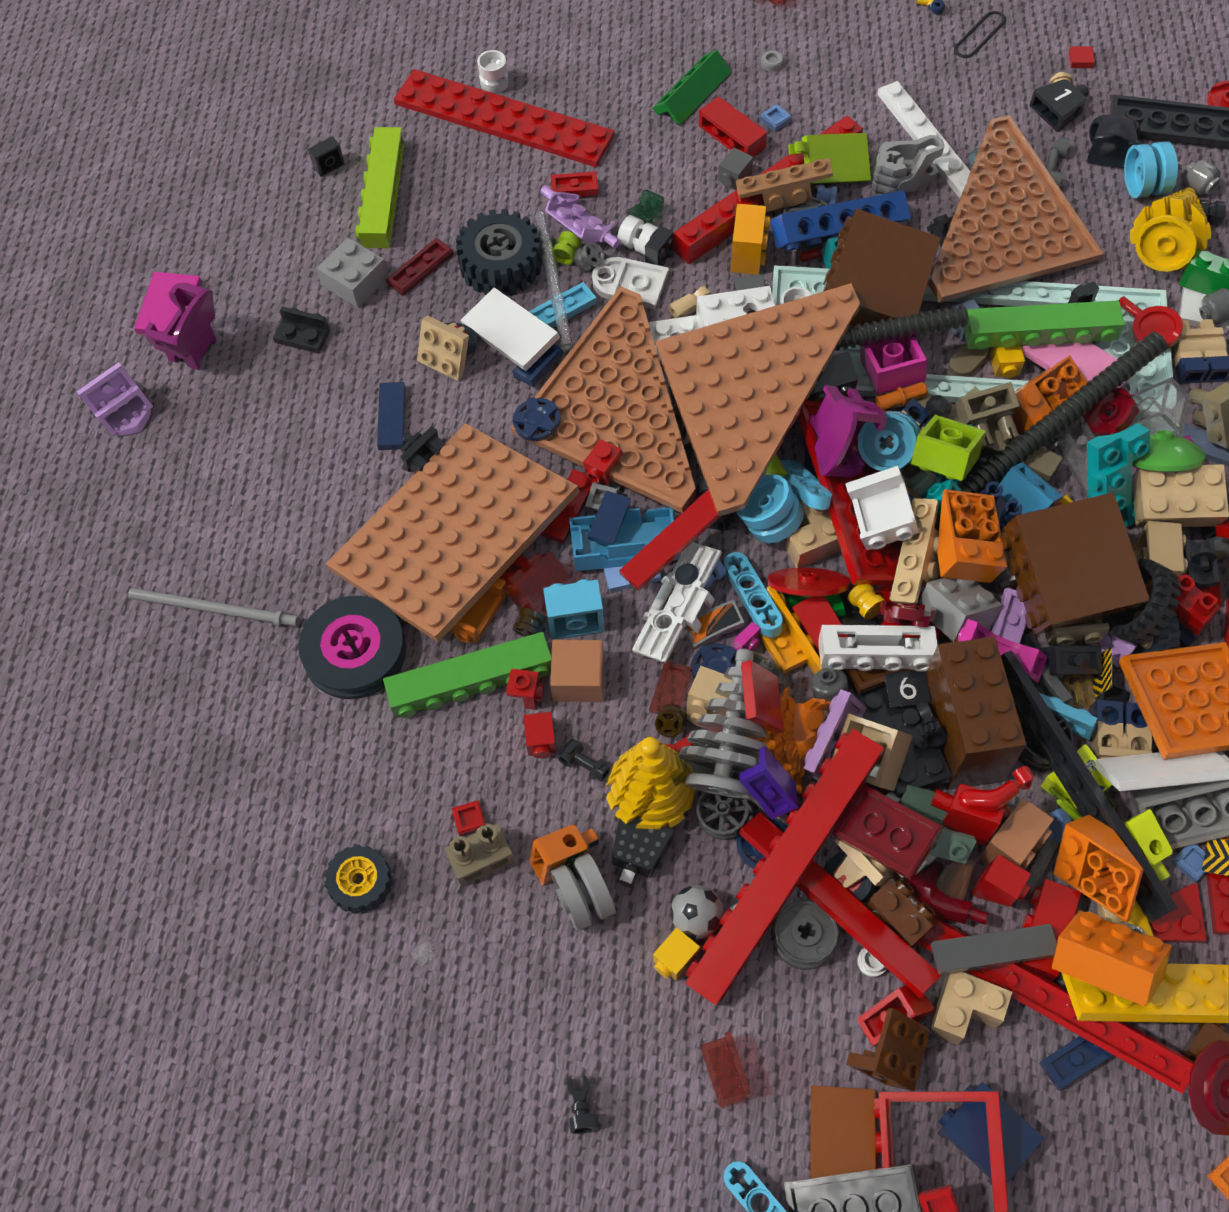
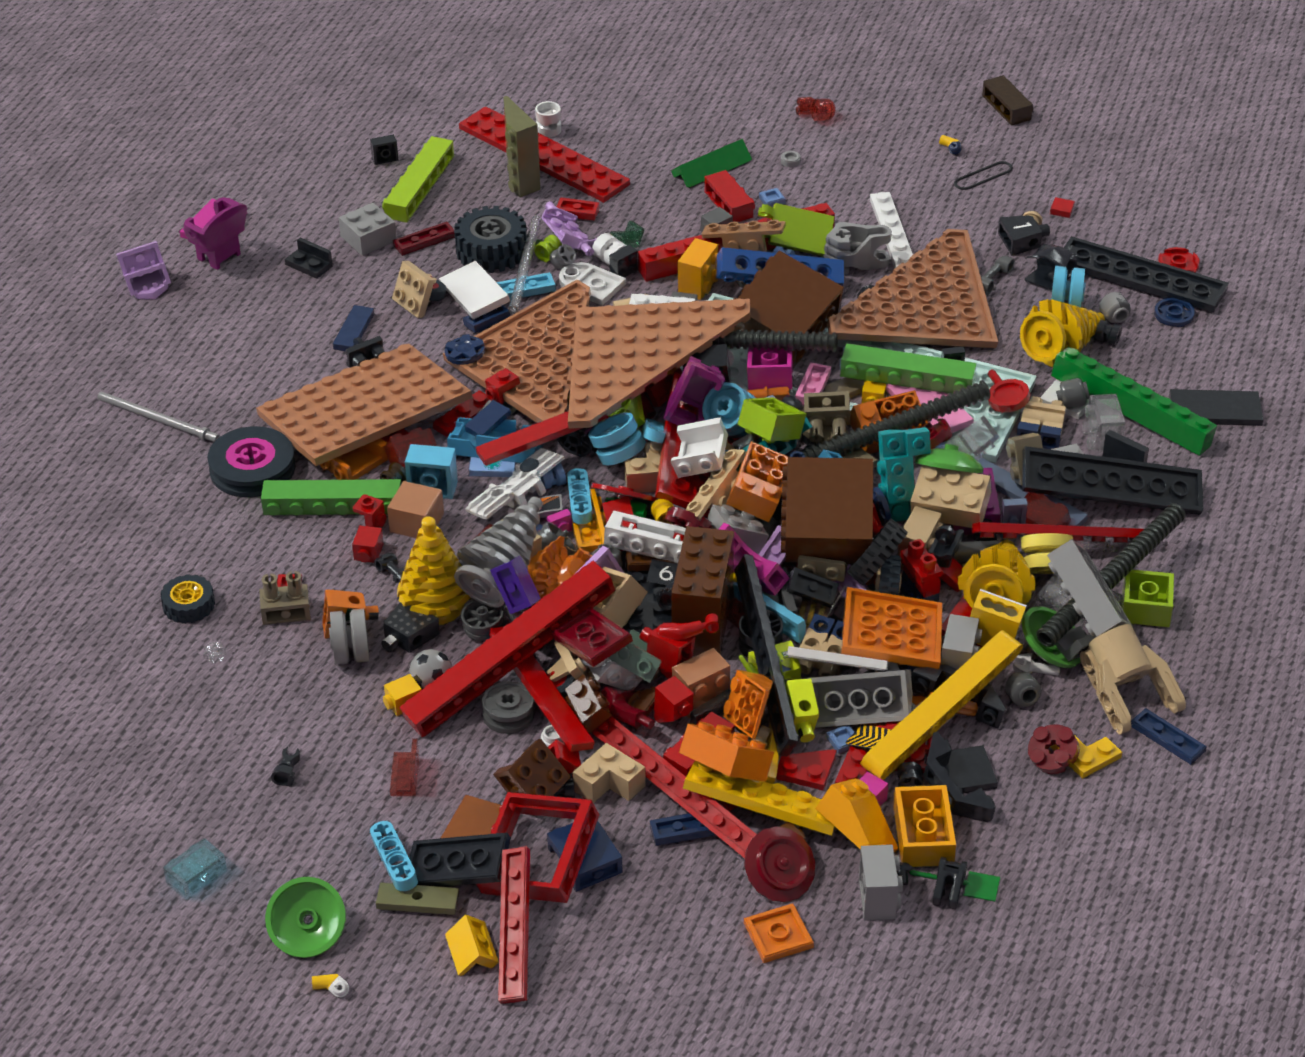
camera: 15 degrees right, 20 degrees down
(489, 125) = (521, 150): none -> olive slope
(761, 697) = (534, 527): red tile -> none
(944, 367) = (813, 380): none -> bright pink plate
(994, 949) = (638, 735): dark grey tile -> none

